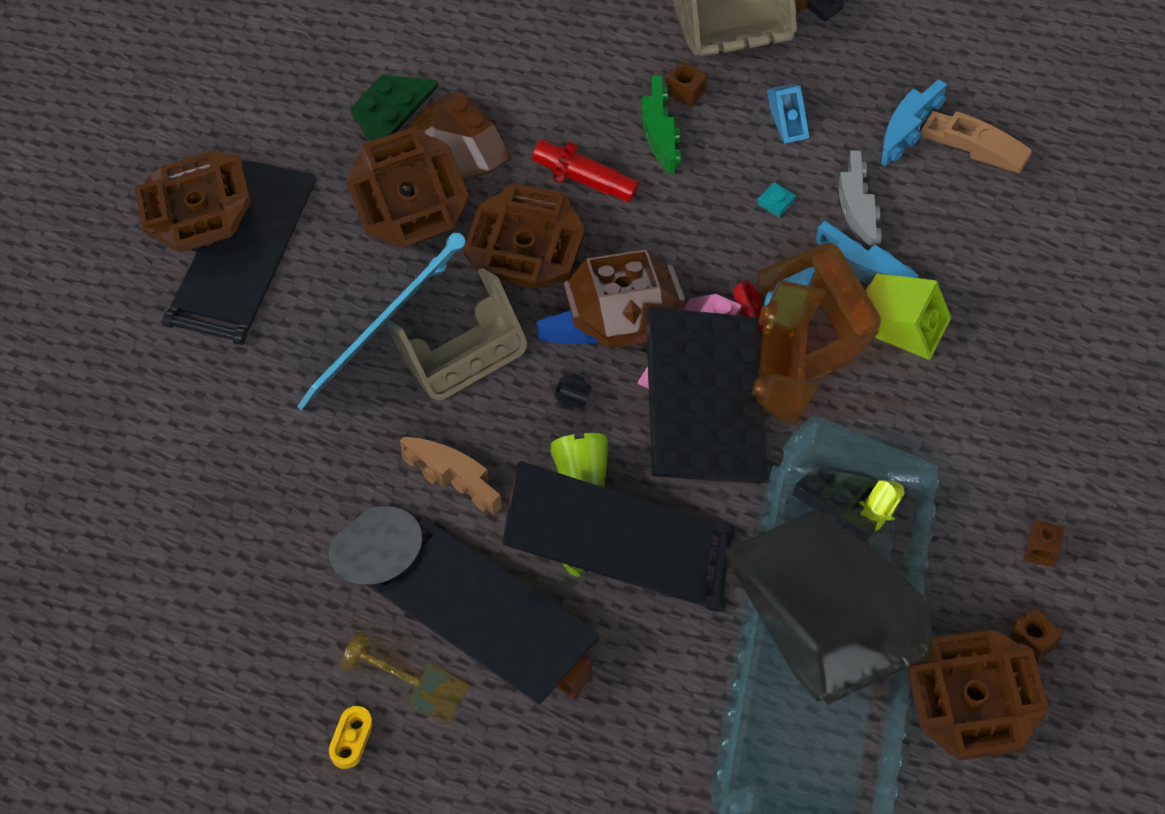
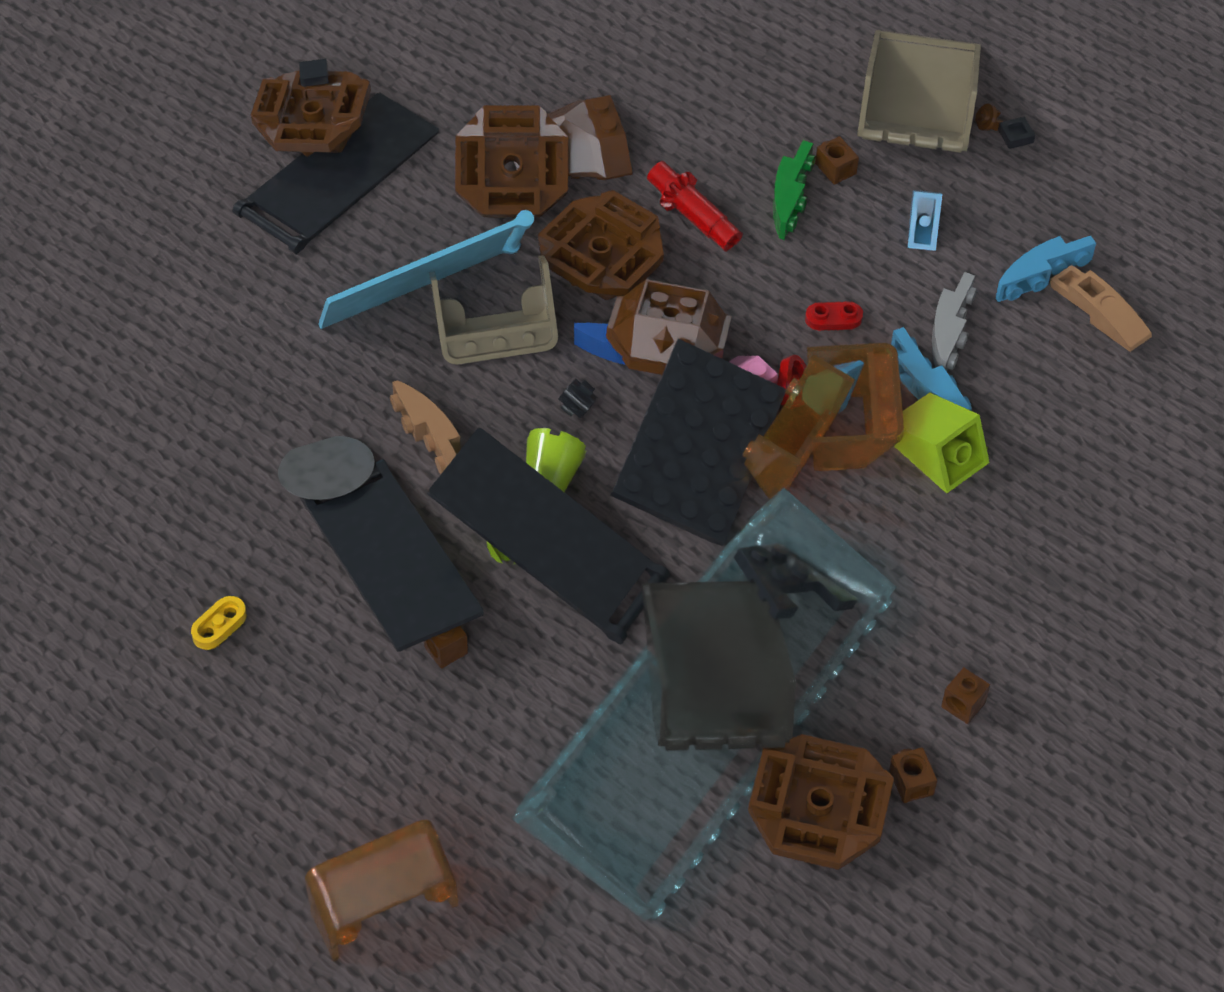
camera: 20 degrees right, 5 degrees down
(179, 163) = (313, 72): none -> black tile
(390, 104) = (545, 85): dark green wing -> none
(434, 692) = (314, 615): clear yellow piece -> none
(755, 230) = (834, 316): none -> red plate
(776, 199) = (871, 295): teal plate -> none
(882, 502) = (818, 600): neon yellow arm -> none

